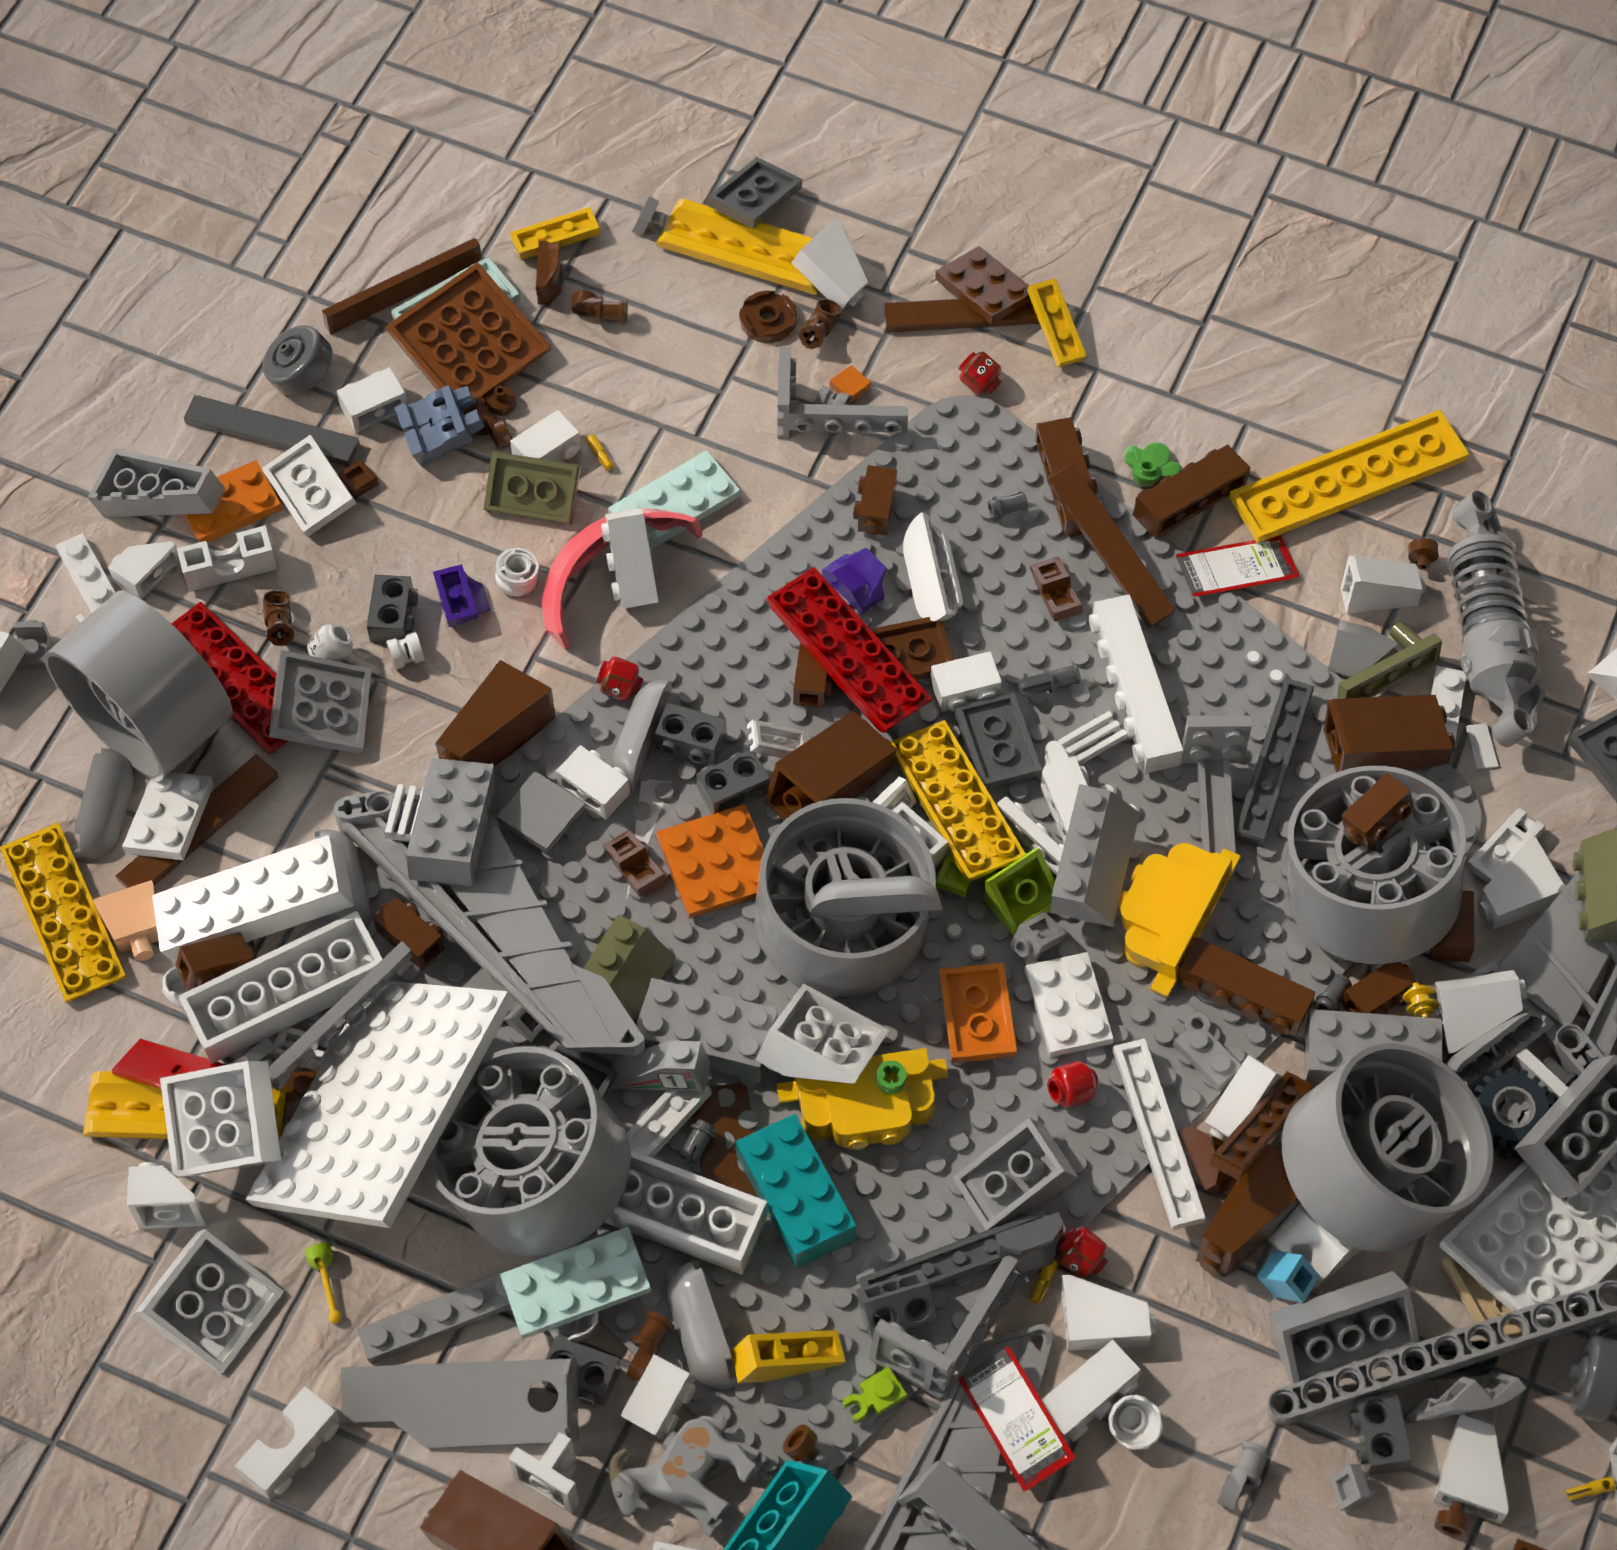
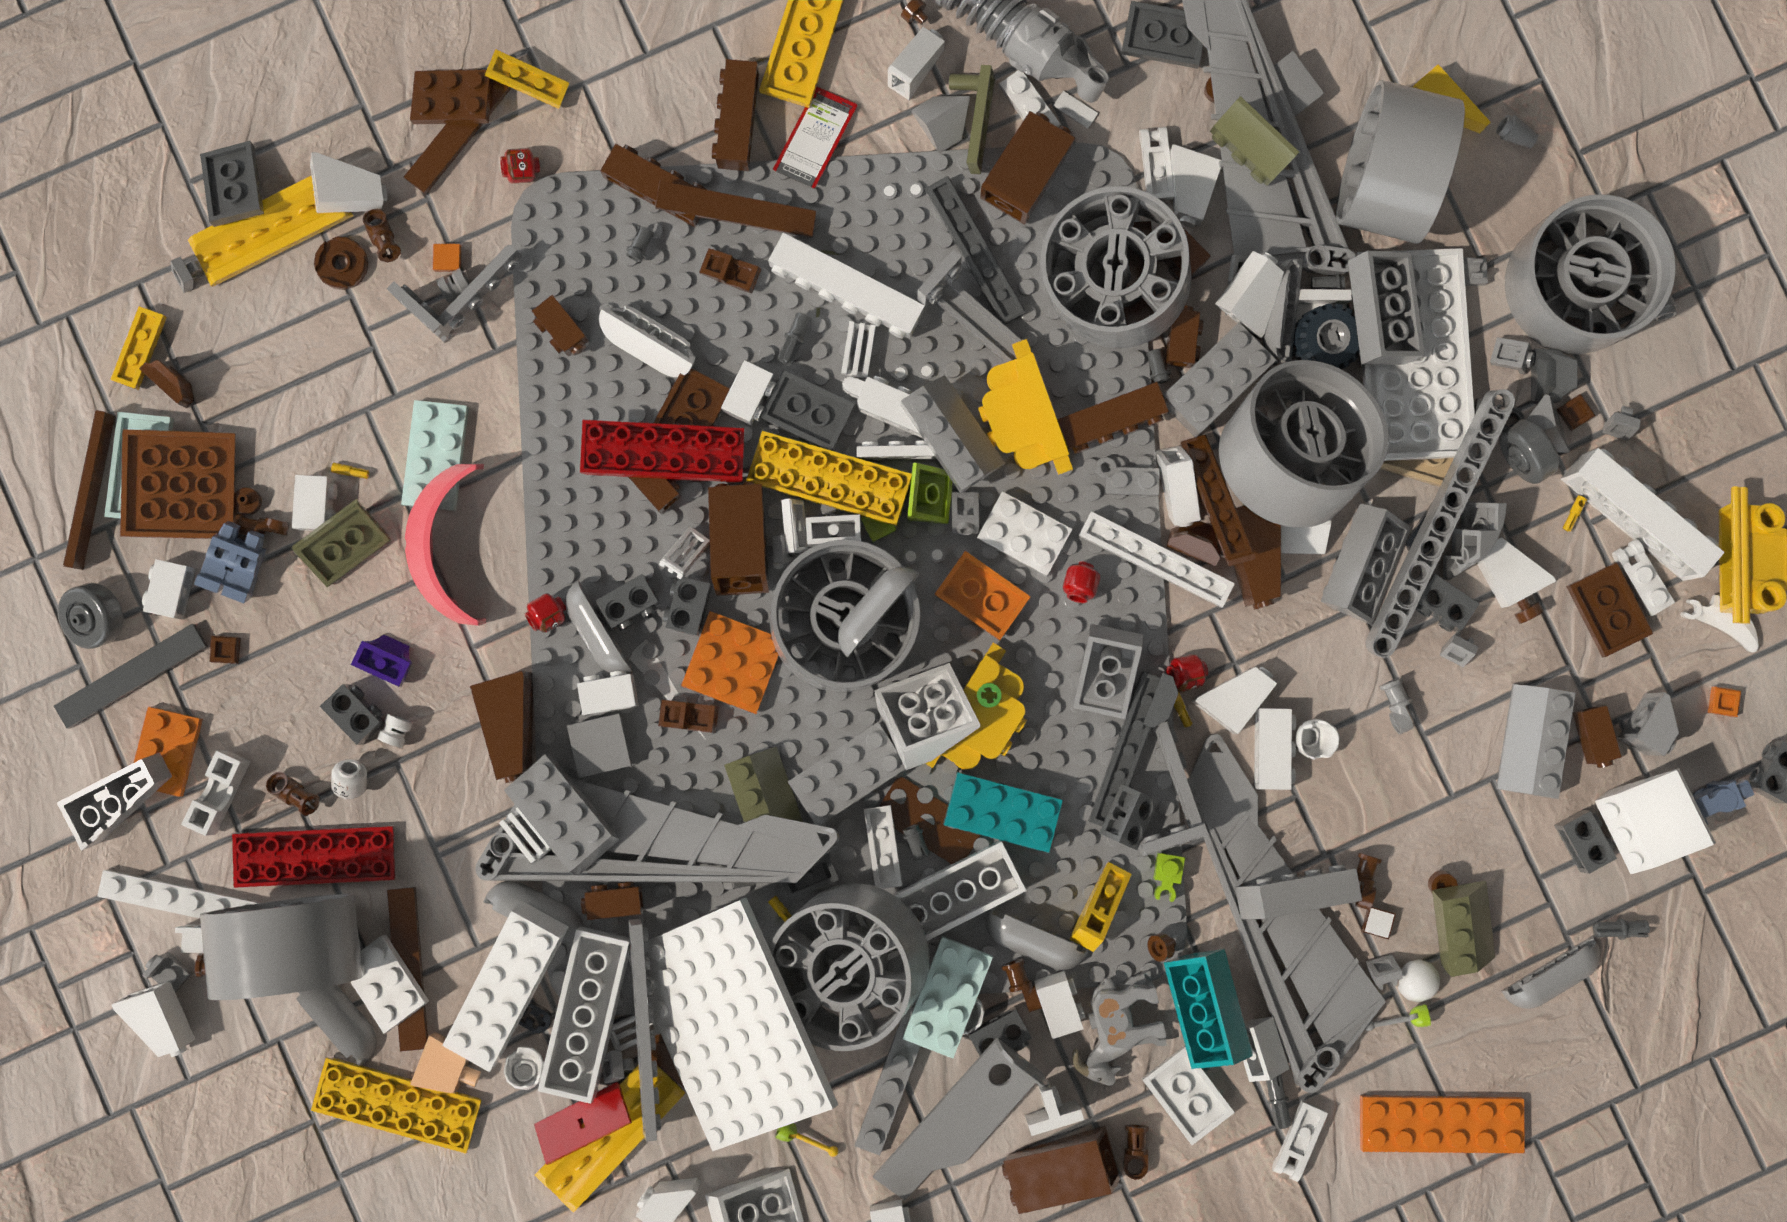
camera: 50 degrees left, 25 degrees up
(143, 566) = (170, 851): white slope -> none
(212, 958) = (528, 1044): reddish brown brick -> none
(220, 1118) = (654, 1134): white slope -> none
(308, 485) = (203, 689): white plate -> none
(320, 702) = (387, 820): light grey plate -> none
(514, 561) = (390, 598): white wheel -> none
(599, 308) = (237, 370): reddish brown connector -> none
(630, 558) = (462, 530): white brick -> none
(664, 1067) = (856, 823): light grey slope -> none
(857, 579) = (607, 391): dark purple slope -> none
(1016, 1419) = (1255, 806): sticker -> none
(1150, 463) = (687, 115): bright green plate -> none
(1288, 1276) = (1310, 567): medium azure brick -> none
(1377, 811) = (1099, 246): reddish brown brick -> none
(1420, 1000) = (1215, 322): yellow wheel -> none

